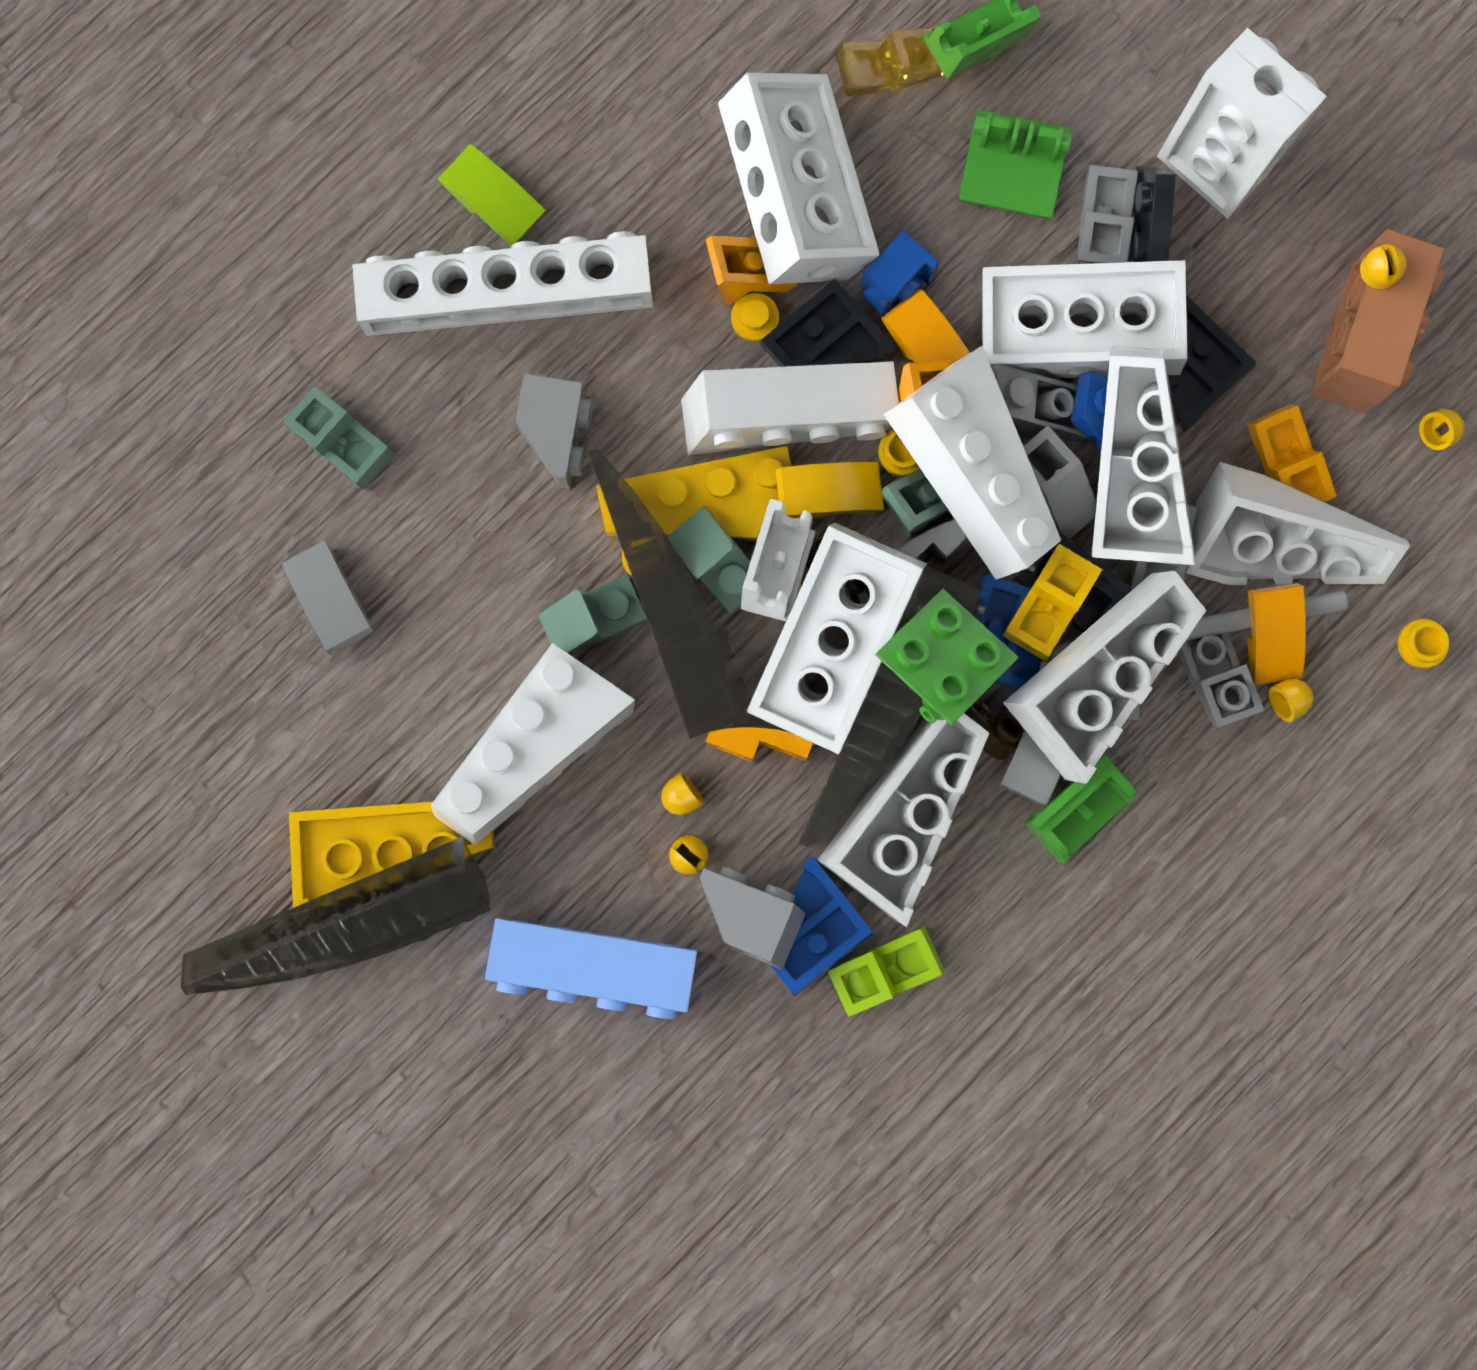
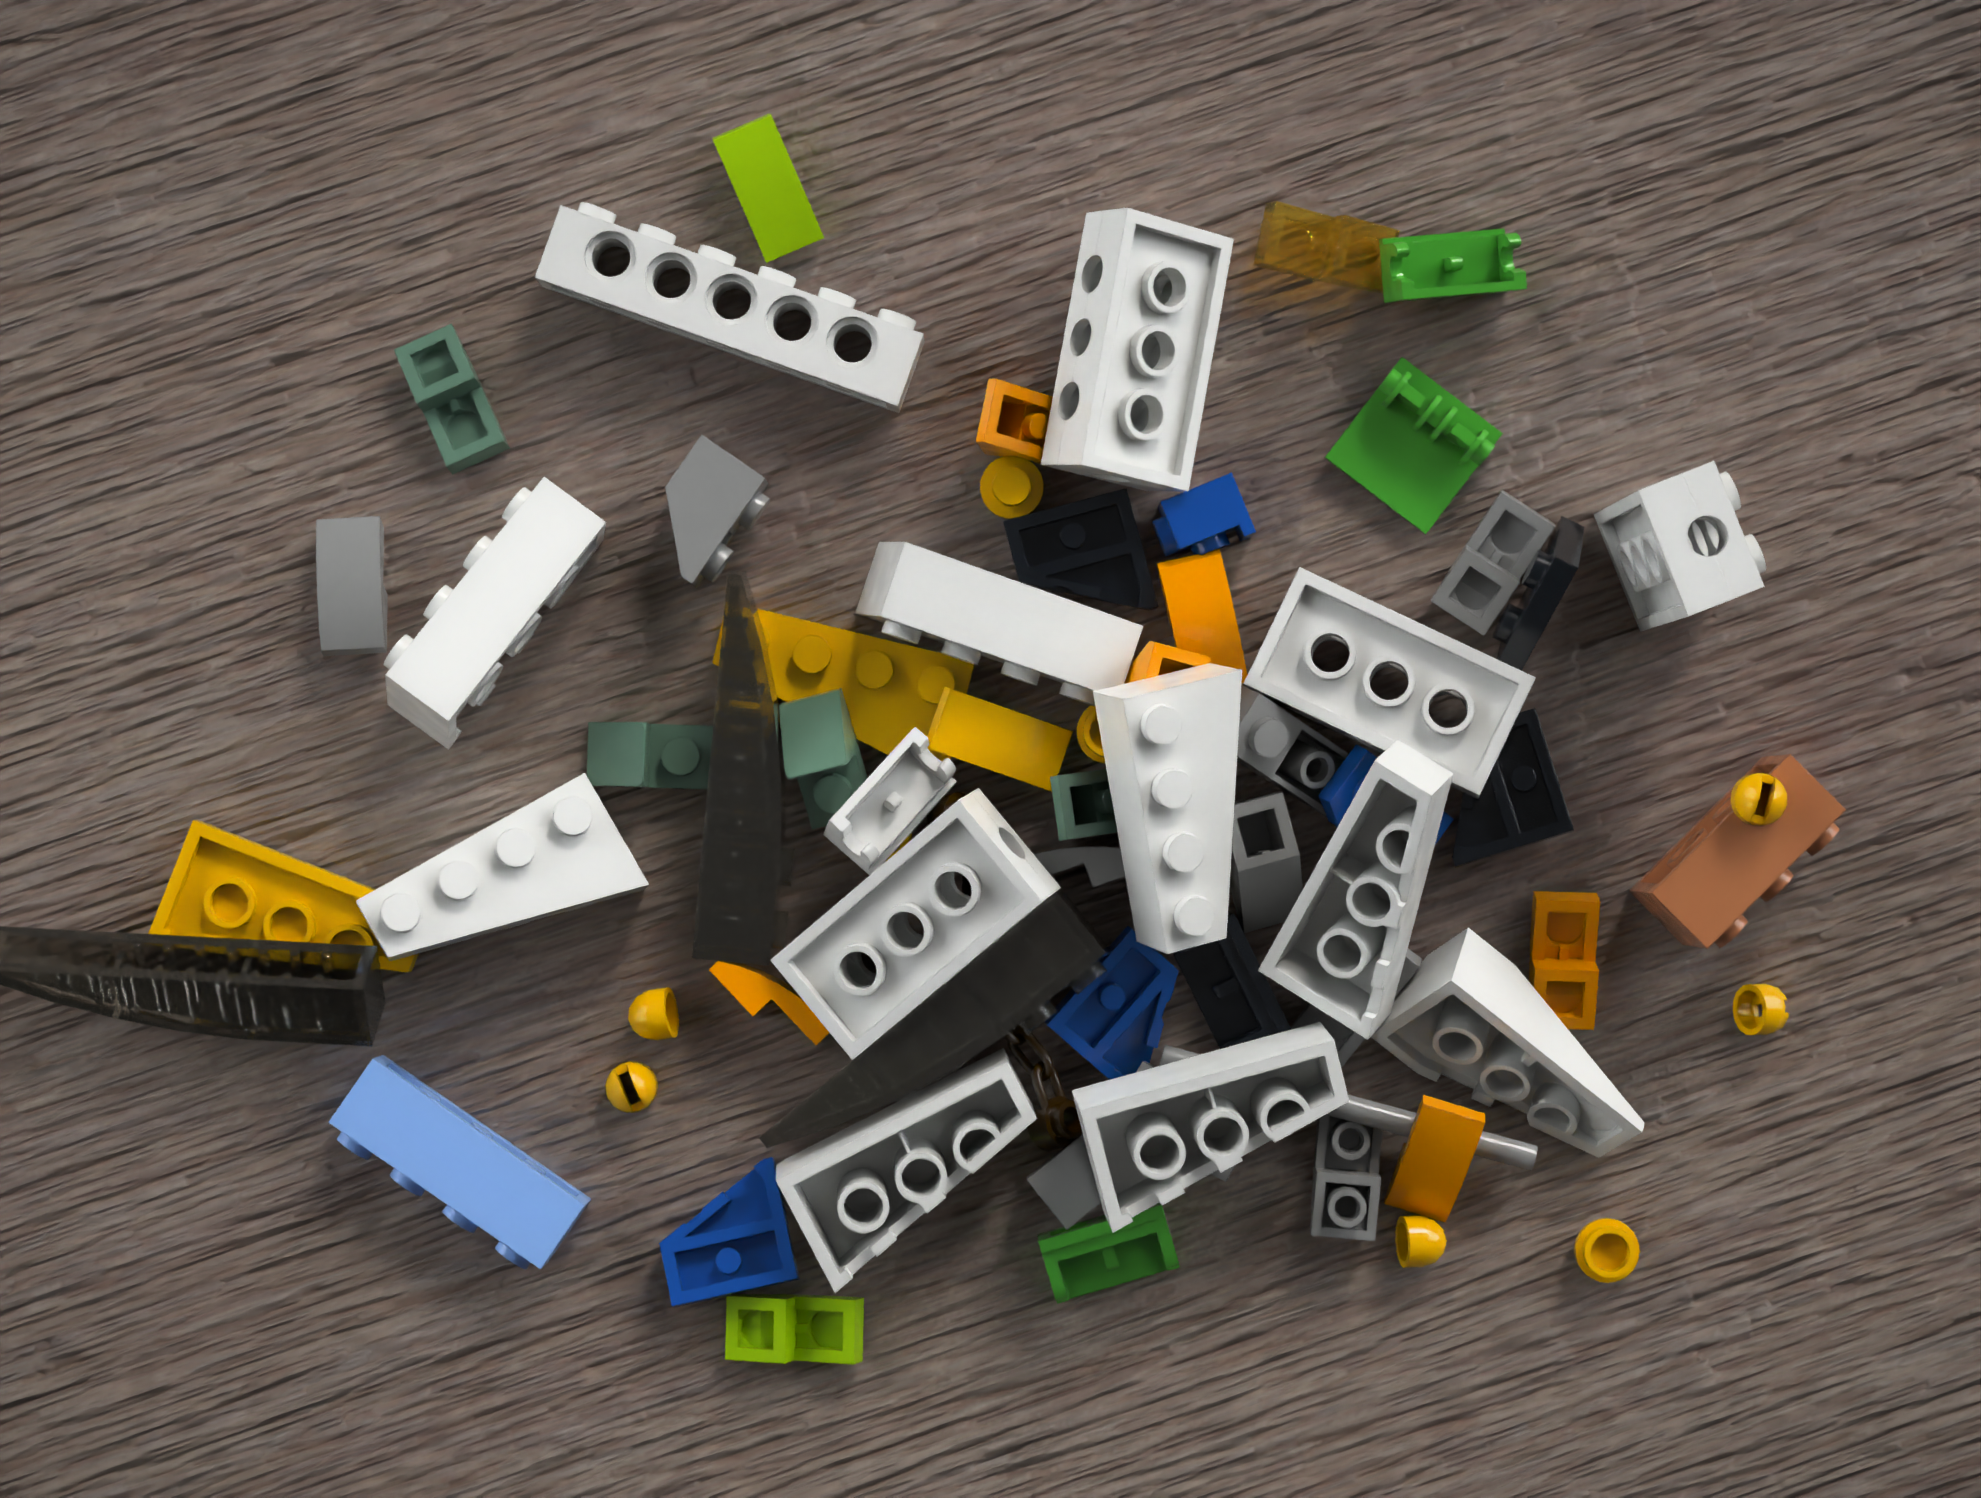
camera: 25 degrees right, 5 degrees up
(432, 566) = (490, 609): none -> white wedge
(750, 919) = (662, 1199): light grey slope -> none
(946, 658) = (1024, 1012): bright green hinge -> none
(1052, 602) = (1188, 999): yellow slope -> none

